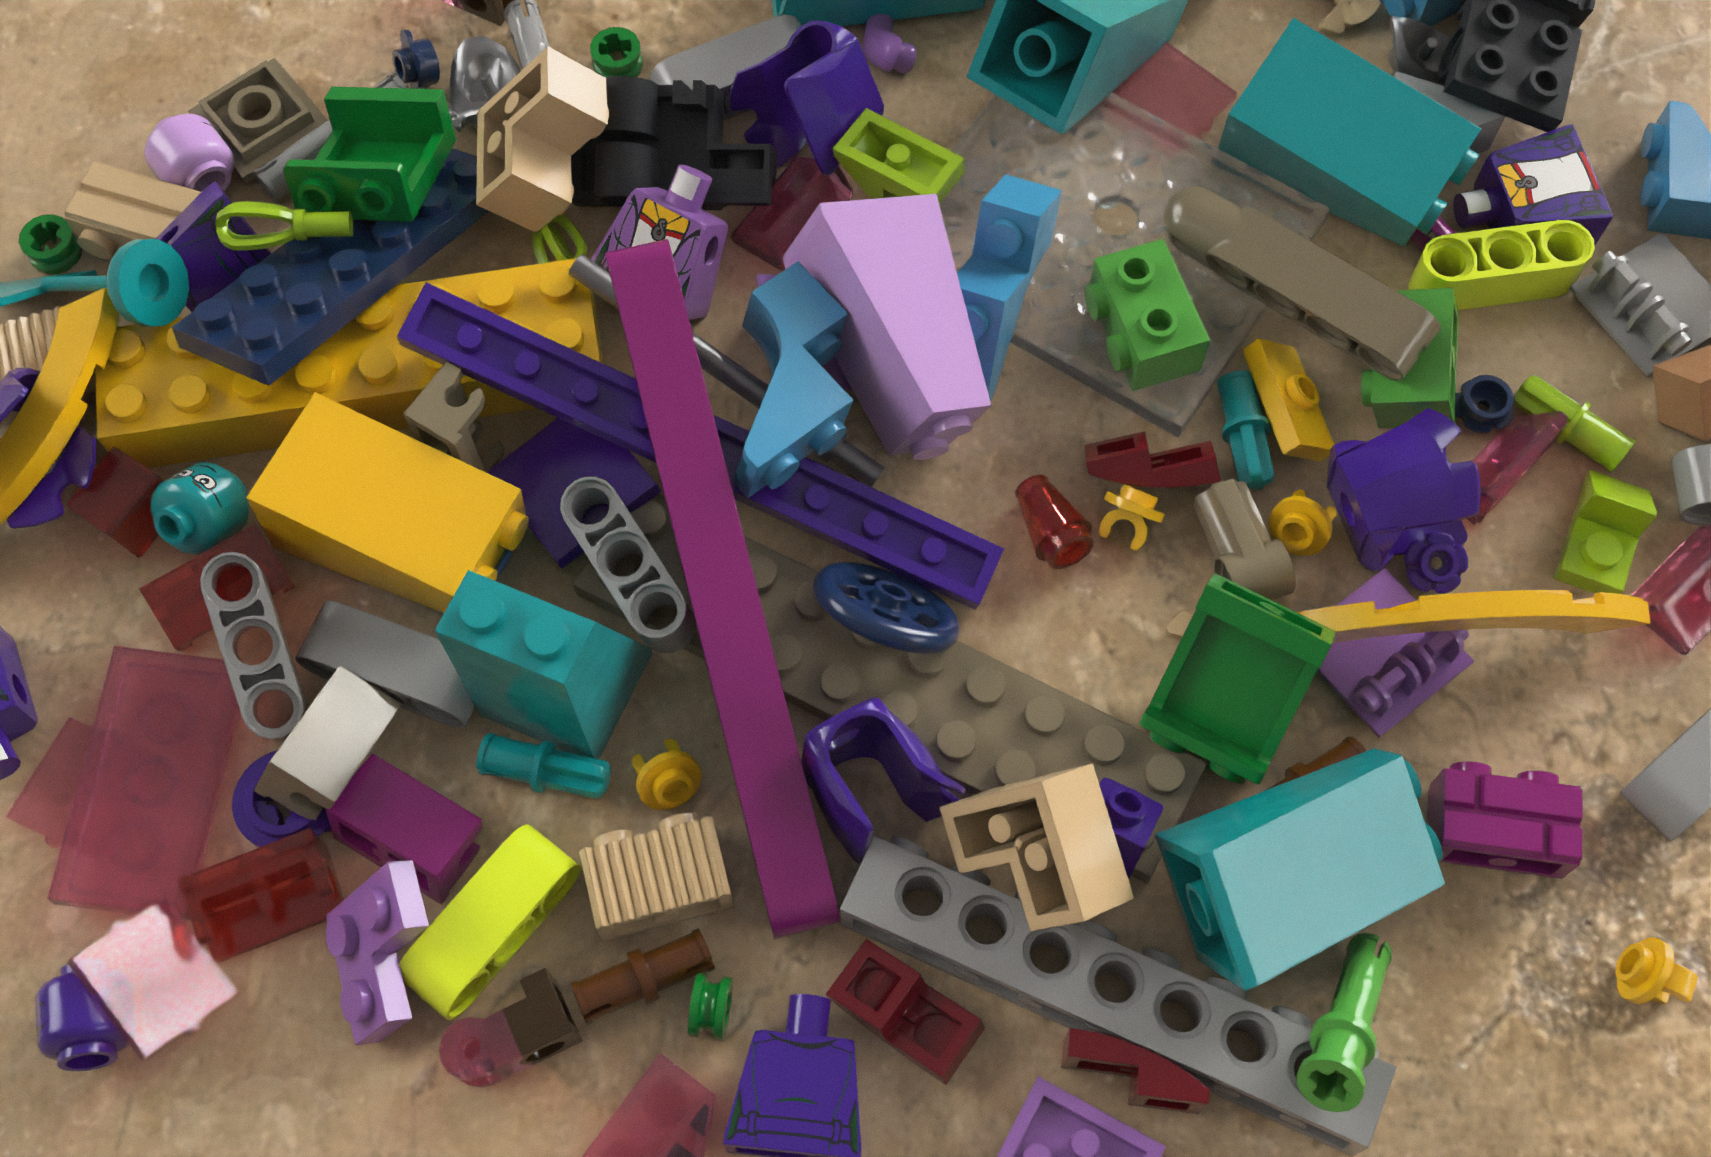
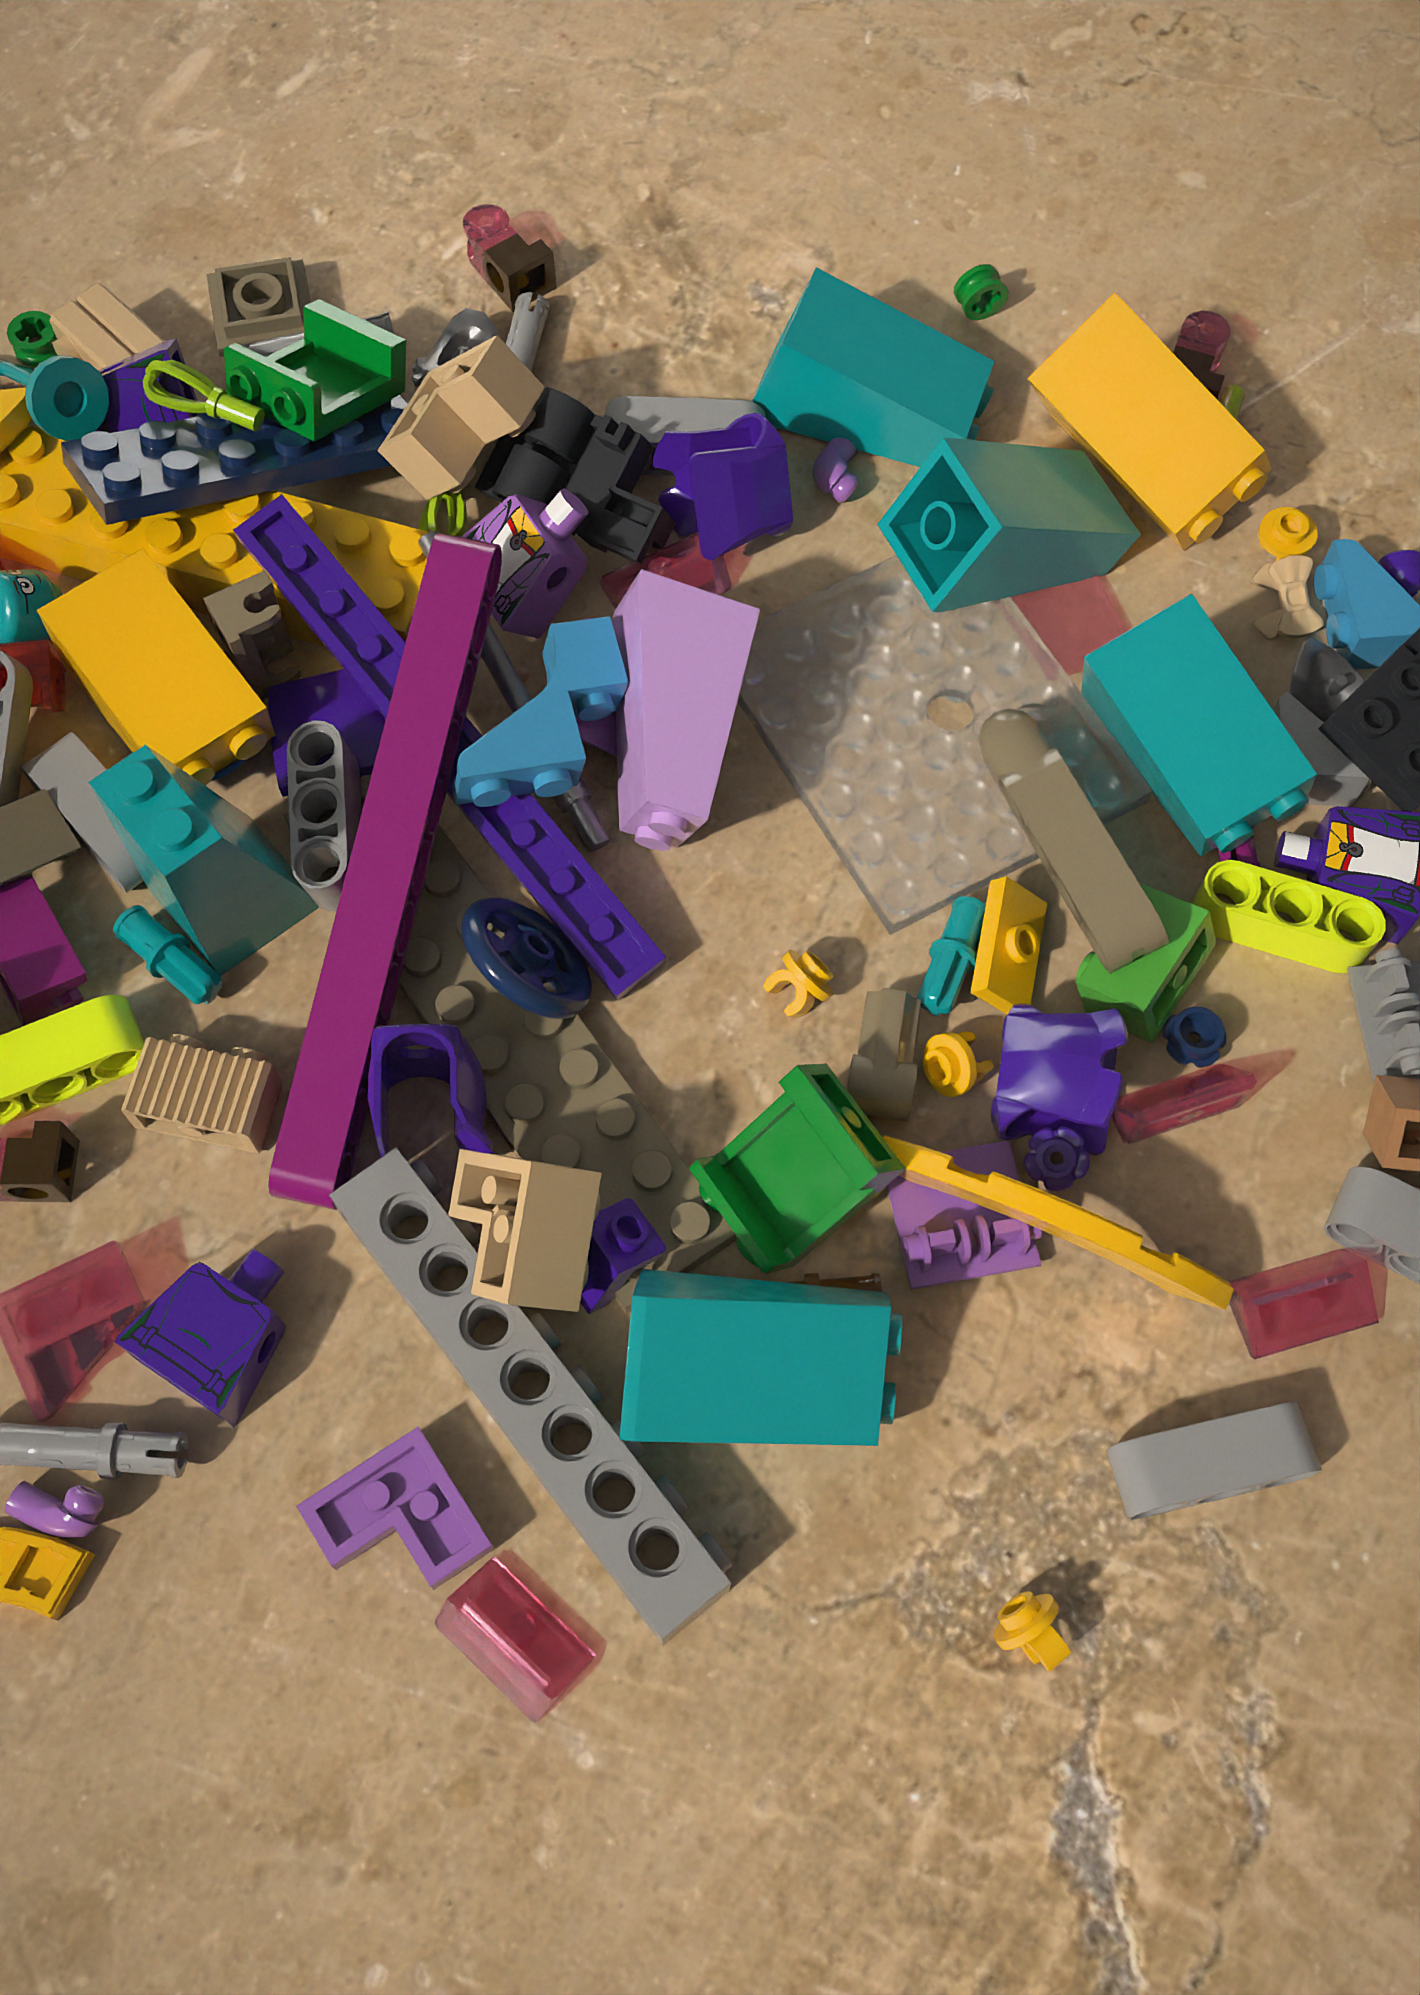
camera: 25 degrees right, 0 degrees up
(189, 153) = (183, 308): lavender head -> none
(416, 61) = (415, 312): dark blue plate -> none
(616, 40) = (592, 363): green bush -> none
(642, 976) = (143, 1171): reddish brown pin -> none
(667, 778) = (263, 1015): yellow plate -> none
(710, 1006) = (182, 1225): green bush -> none
(895, 160) = (770, 573): lime slope -> none
(905, 1011) = (346, 1315): dark red slope -> none
(1009, 242) = (775, 726): dark azure arch -> none
(1053, 523) = (726, 957): clear red cone -> none
(1130, 463) = (832, 938): dark red slope -> none
(1146, 315) = (912, 807): bright green brick -> none
(1153, 1079) = (513, 1479): dark red slope -> none
(1344, 1036) = (691, 1528): bright green pin -> none
(1506, 821) = (976, 1419): magenta brick -> none
(1583, 428) = (1273, 1094): lime axle -> none
(1604, 533) = (1239, 1209): lime slope -> none

